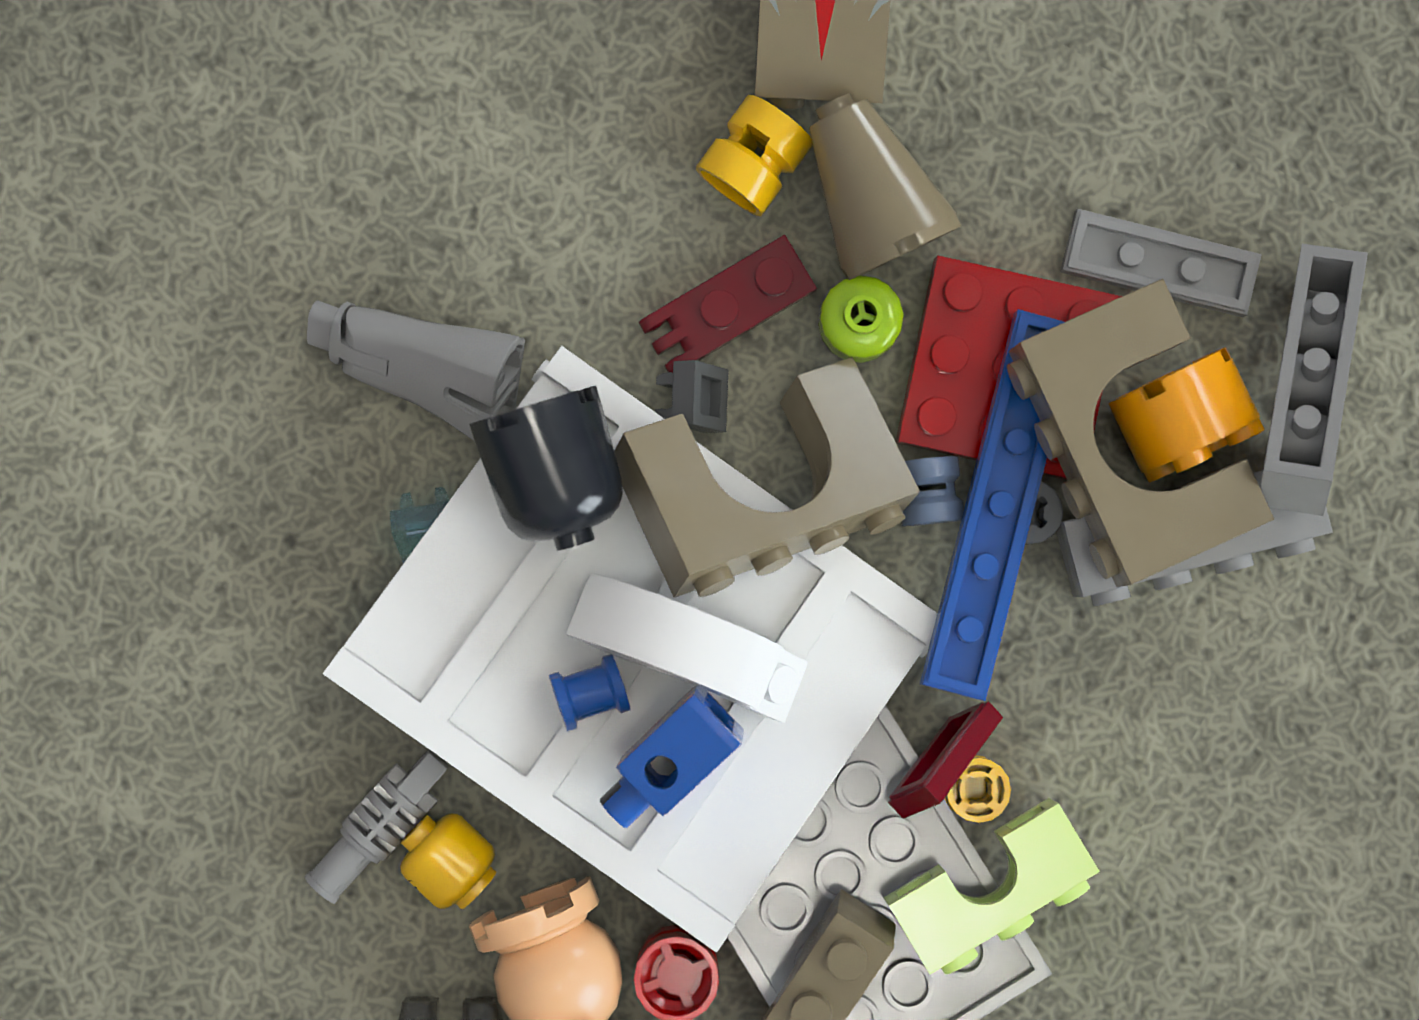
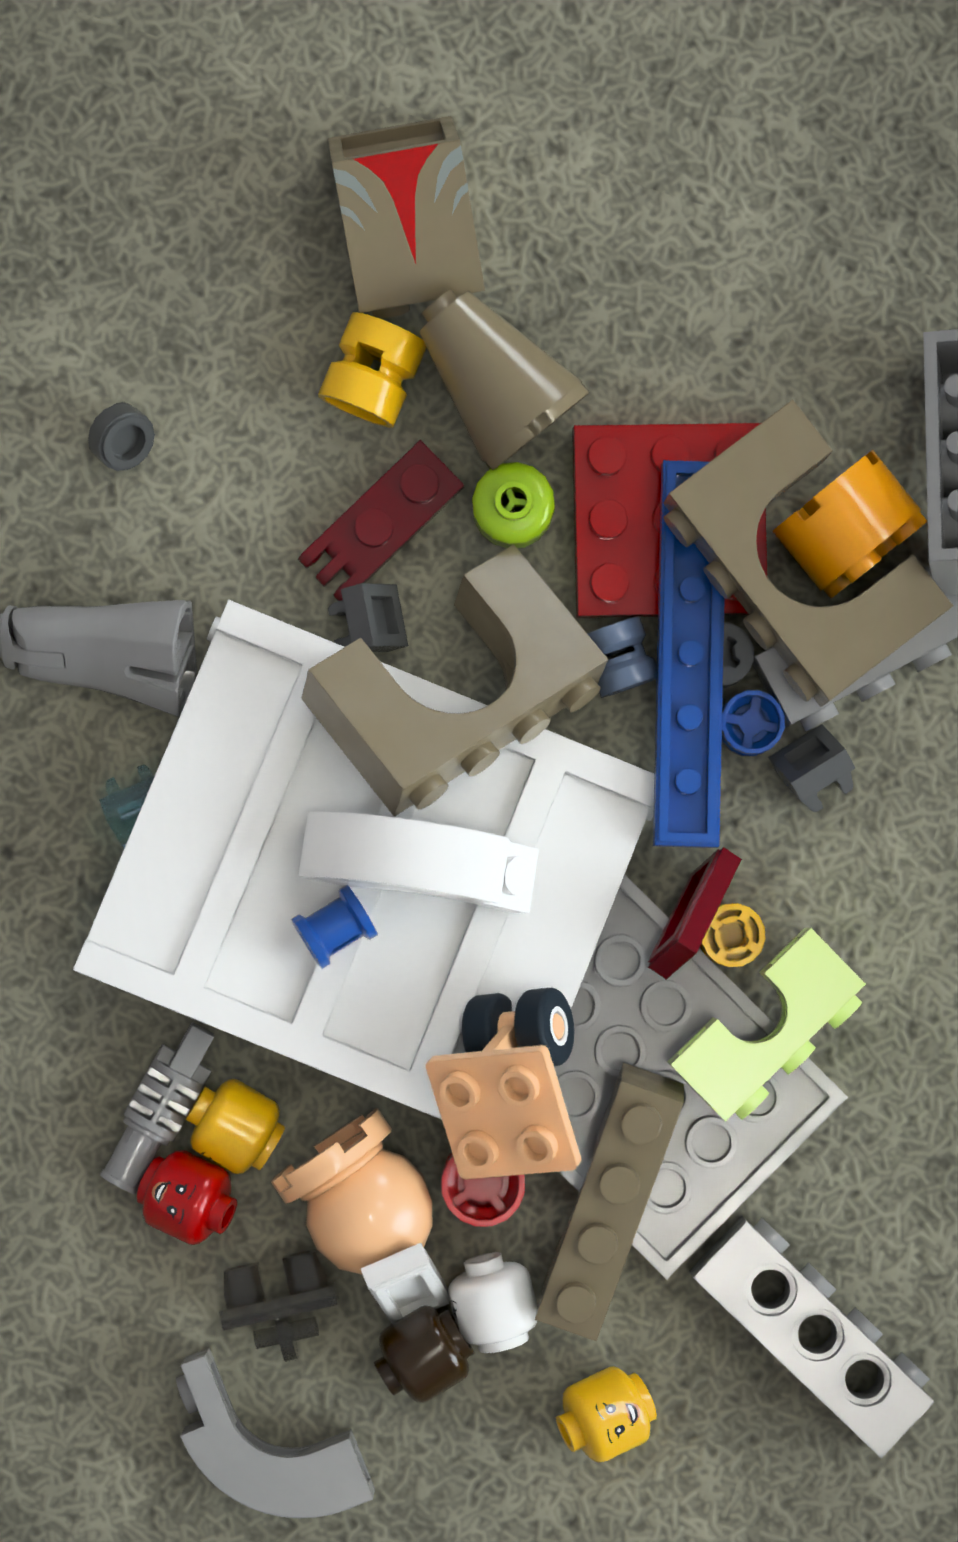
camera: 10 degrees left, 0 degrees up
(383, 919) = (186, 1197): none -> red head
(495, 163) = (121, 436): none -> dark grey tile
(552, 468) = (247, 719): black cylinder -> none
(694, 736) = (444, 944): blue torso -> none
(718, 898) = (503, 1093): none -> light nougat plate
(1052, 588) = (755, 715): none -> blue wheel
(1094, 640) = (812, 765): none -> dark grey tile
(1139, 255) = (814, 378): light grey tile -> none

